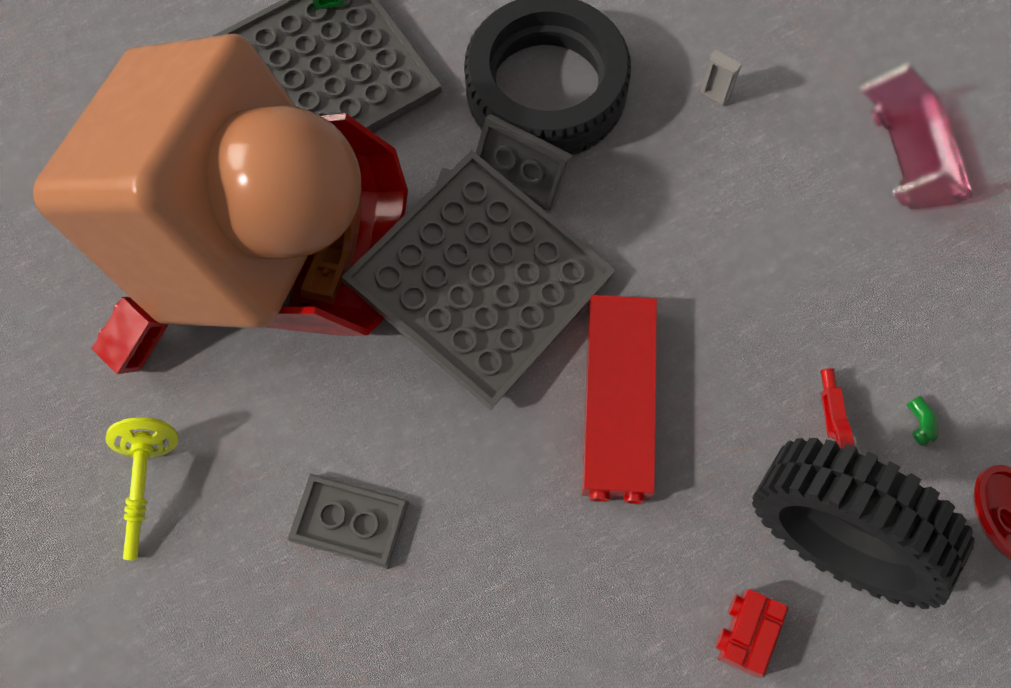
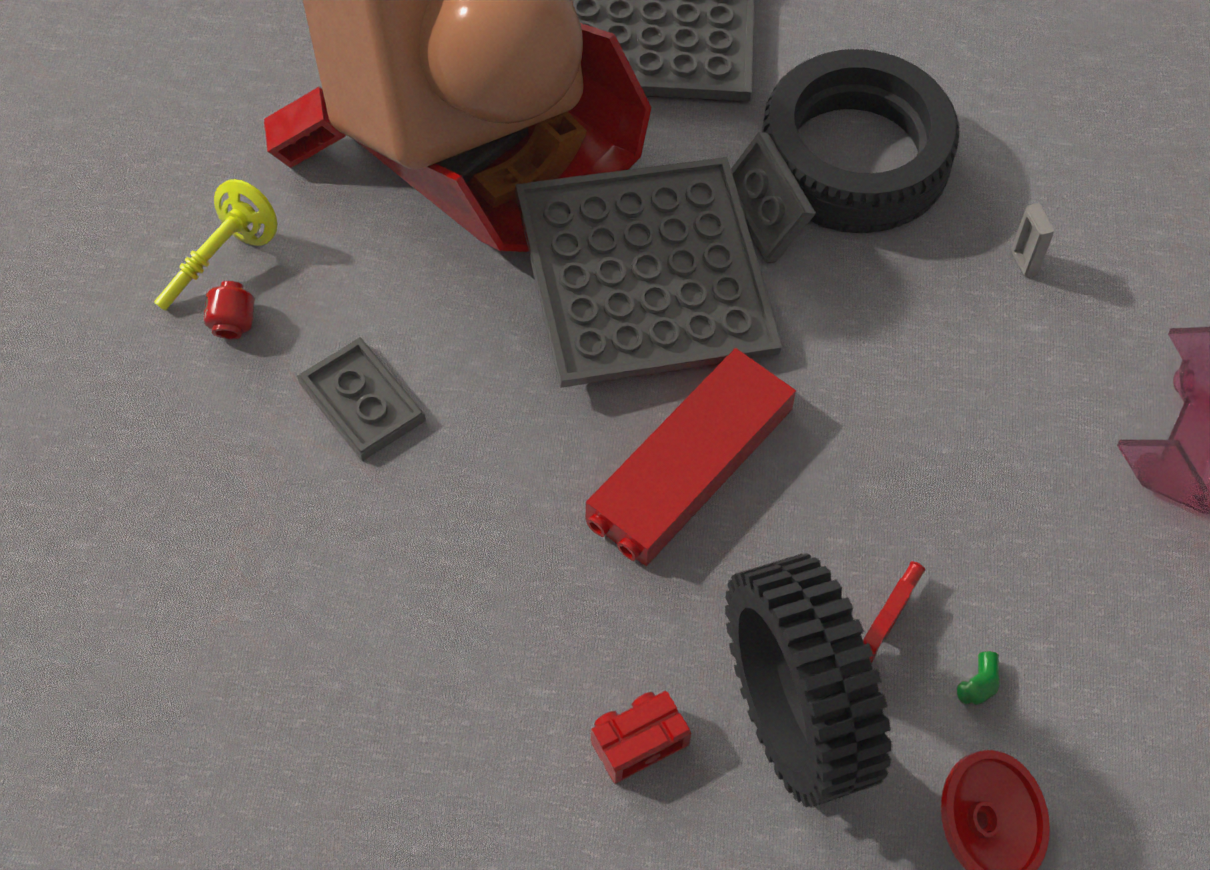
camera: 35 degrees right, 10 degrees down
(192, 525) = (229, 310): none -> red head

